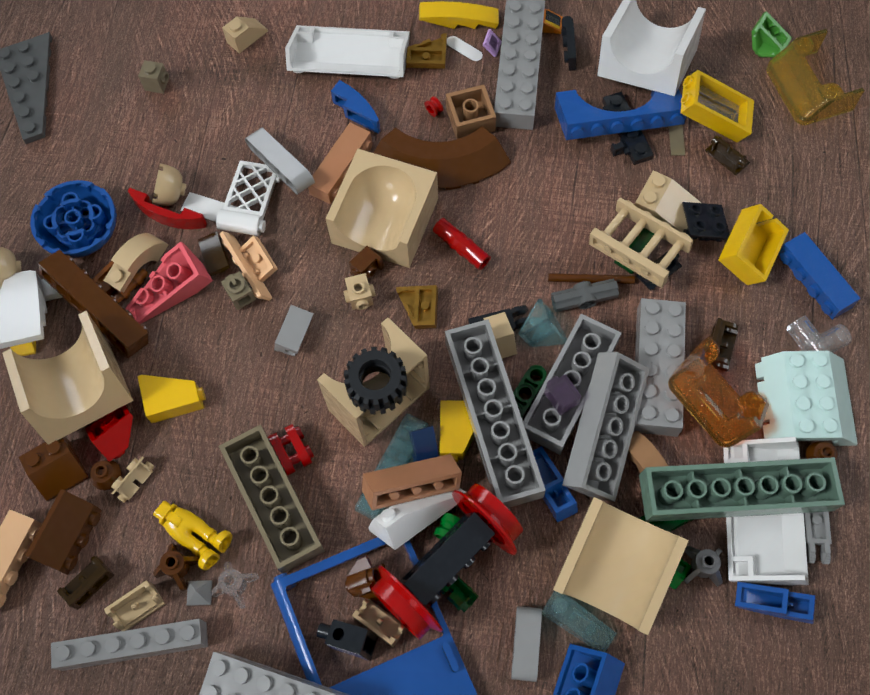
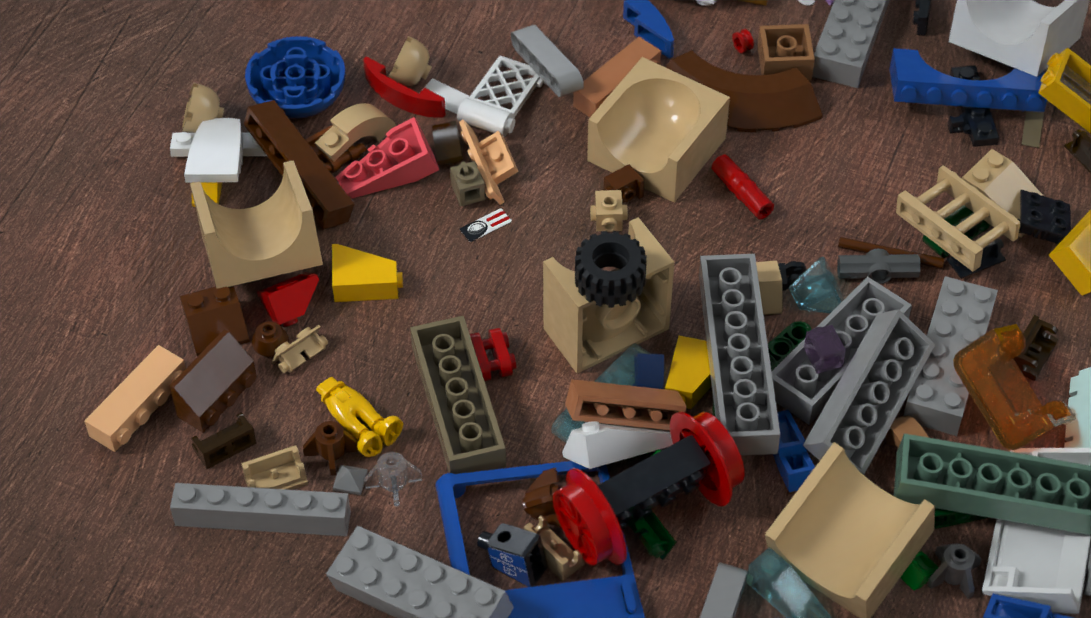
camera: 10 degrees right, 15 degrees down
(261, 322) = (485, 225): none -> sticker
(293, 330) = (520, 236): light grey hinge -> none
(420, 304) = (679, 238): pearl gold wing -> none

